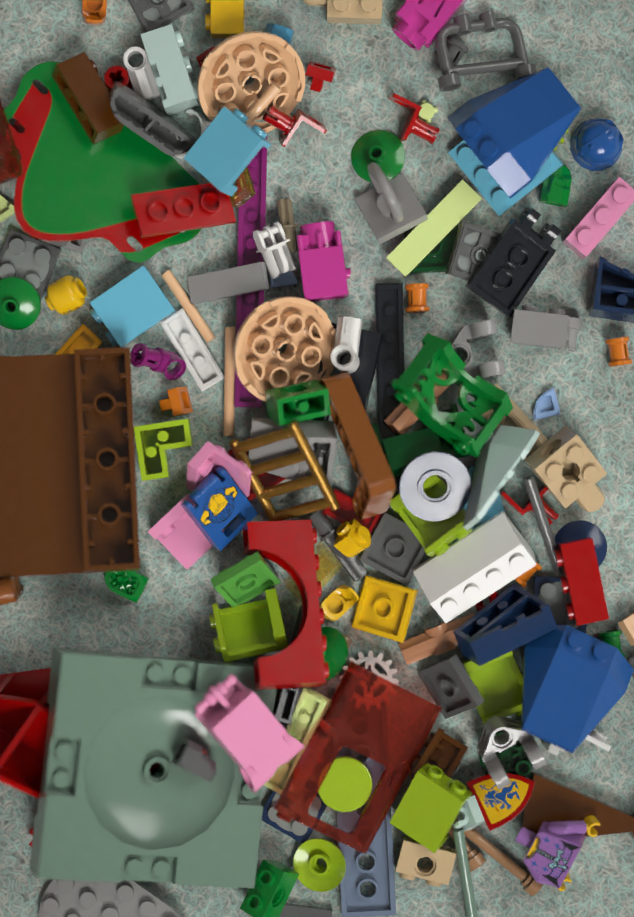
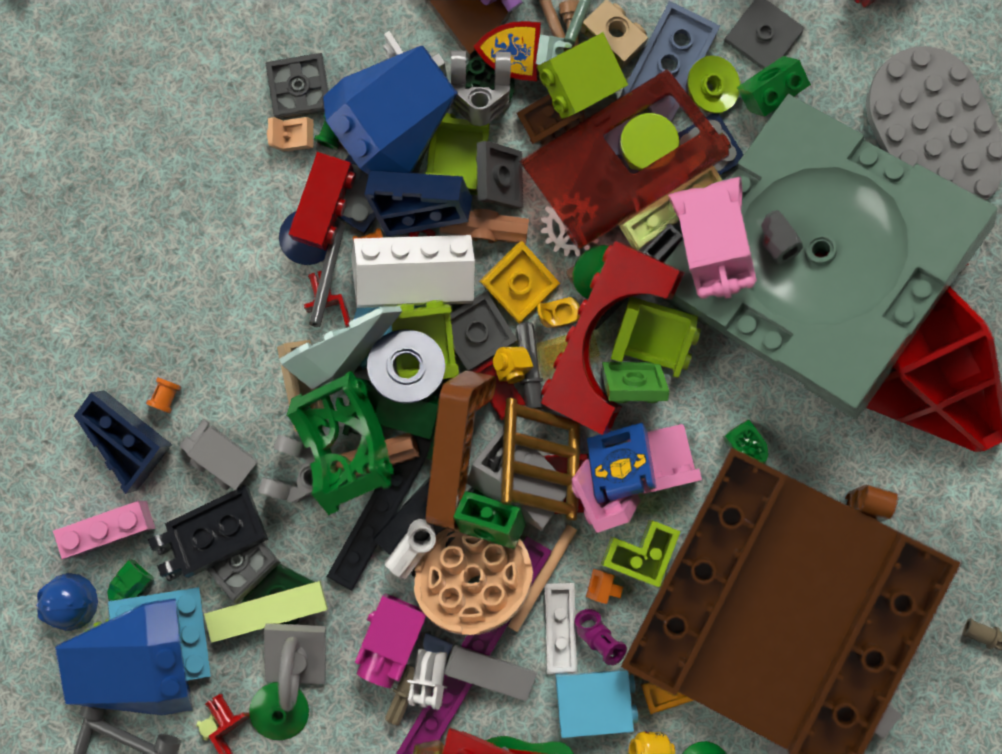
camera: 150 degrees left, 5 degrees down
(189, 308) = (541, 670): light nougat piece -> none
(417, 298) = (321, 554): orange bush -> none
(546, 405) = (260, 384): light blue tile -> none
(569, 470) = (274, 311): tan brick -> none

